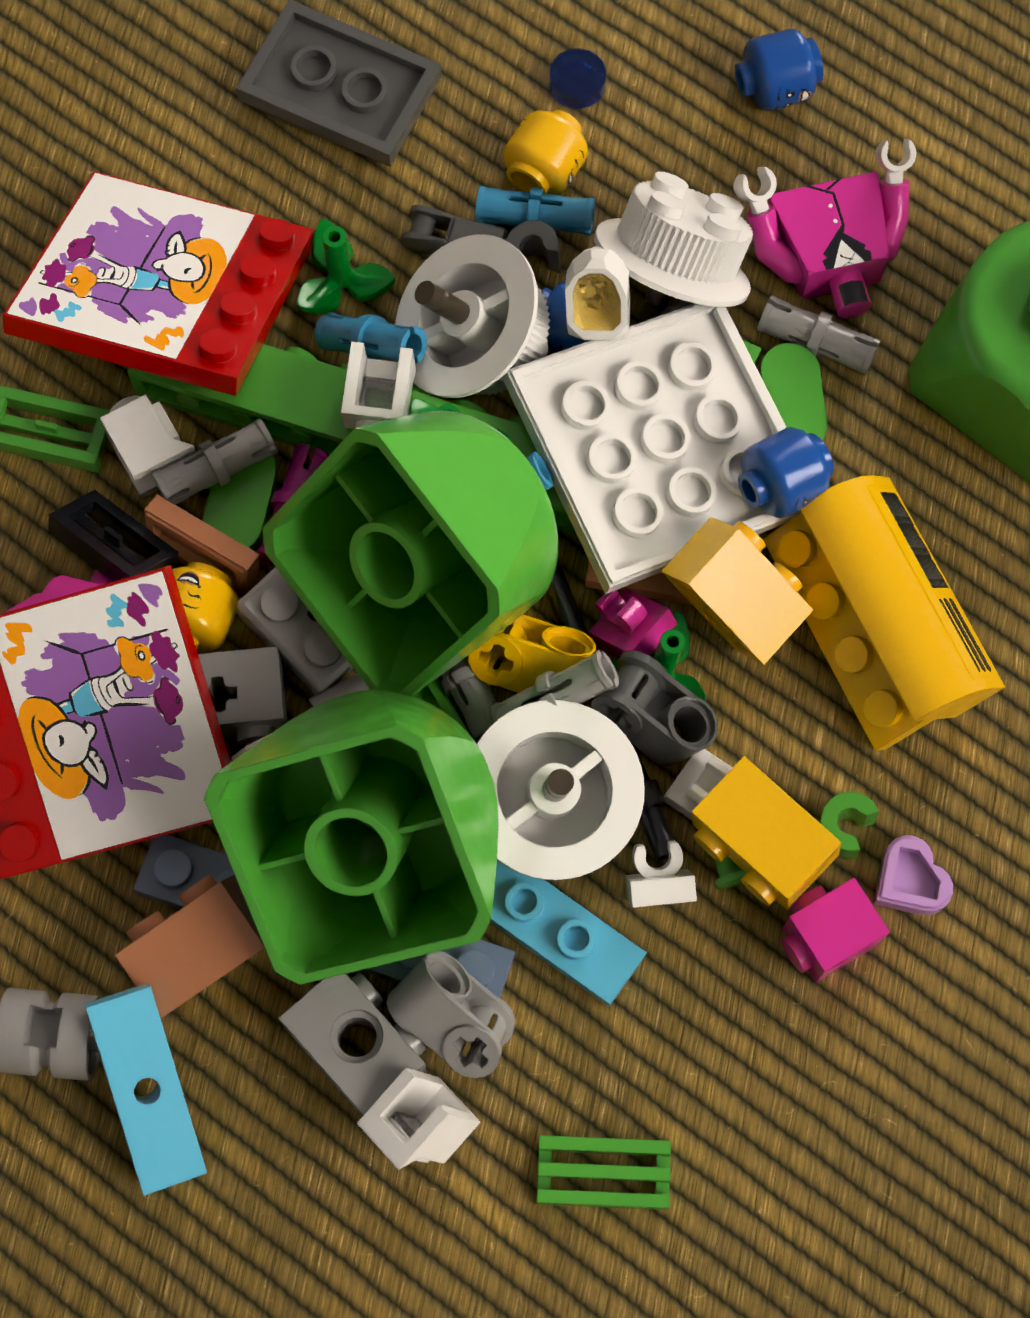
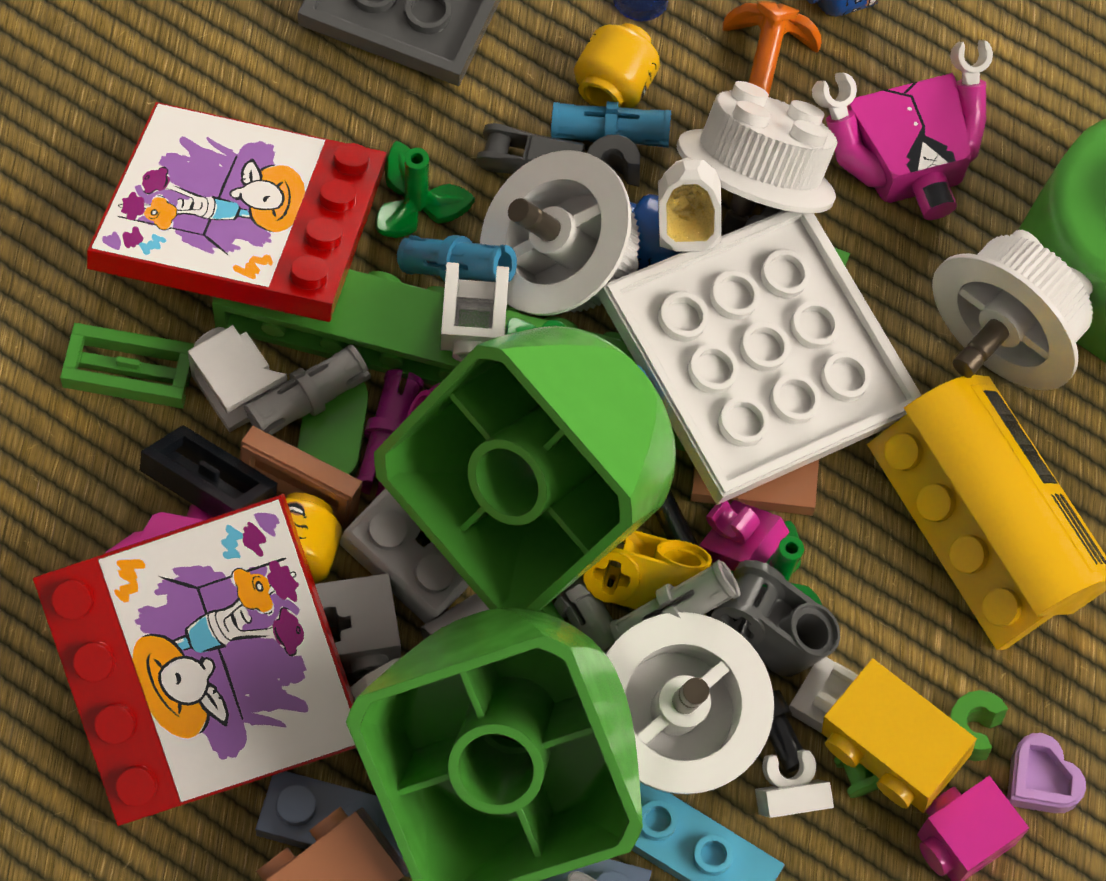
camera: 10 degrees left, 5 degrees down
(704, 114) = (774, 22): none -> orange plant
(738, 588) = (850, 493): yellow brick -> none
(785, 472) = (888, 374): blue head -> none
(795, 387) = (890, 294): bright green tile -> none
(818, 334) = (902, 236): light grey pin -> none
(918, 413) = (1015, 311): none -> white piece

